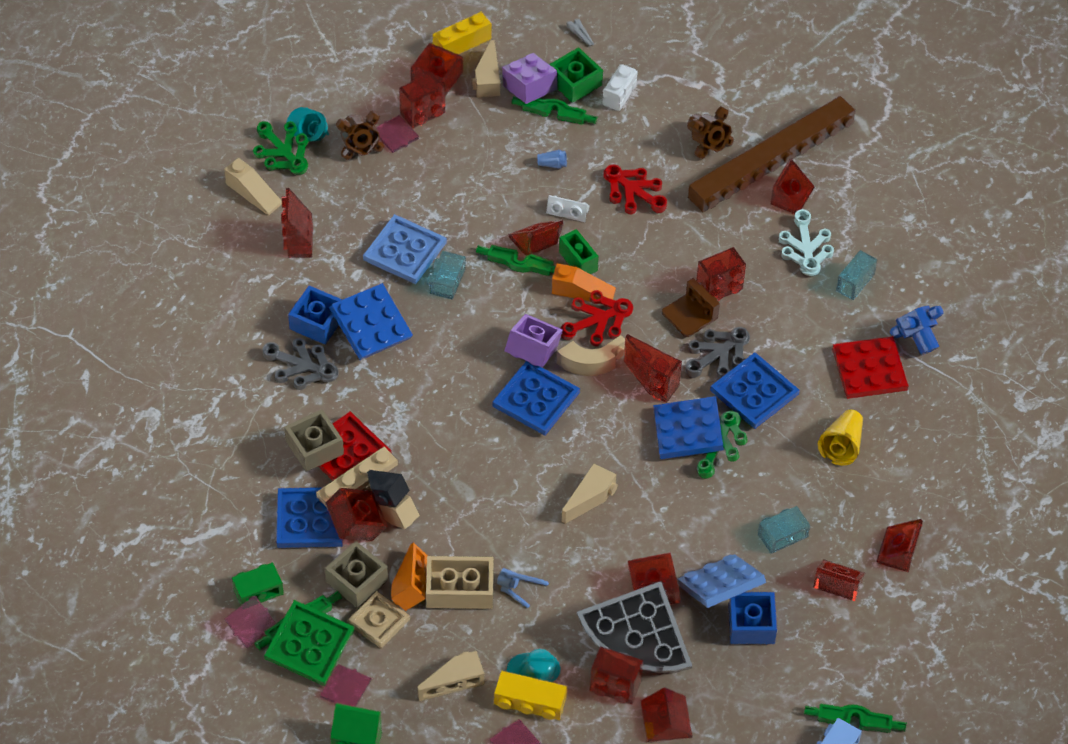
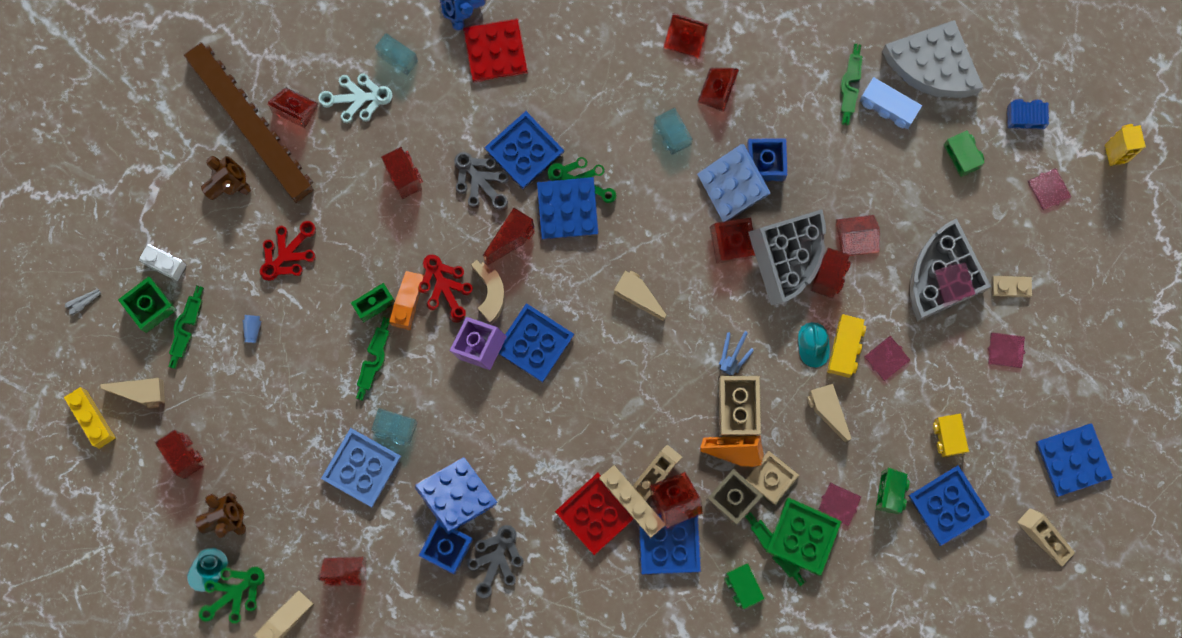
camera: 90 degrees left, 25 degrees up
(250, 621) = (782, 590): clear pink piece -> none
(314, 440) = (599, 541): dark tan brick -> none
(387, 487) = (653, 472): black slope -> none
(396, 134) = (212, 480): clear pink piece -> none
(442, 62) = (136, 441): clear red brick -> none
(529, 78) = (151, 349): medium lavender brick -> none
(537, 236) = (347, 343): clear red slope -> none
(567, 208) = (314, 306): white hinge -> none
(692, 310) = (435, 202): reddish brown bracket -> none
(842, 439) = (577, 74): yellow cone -> none

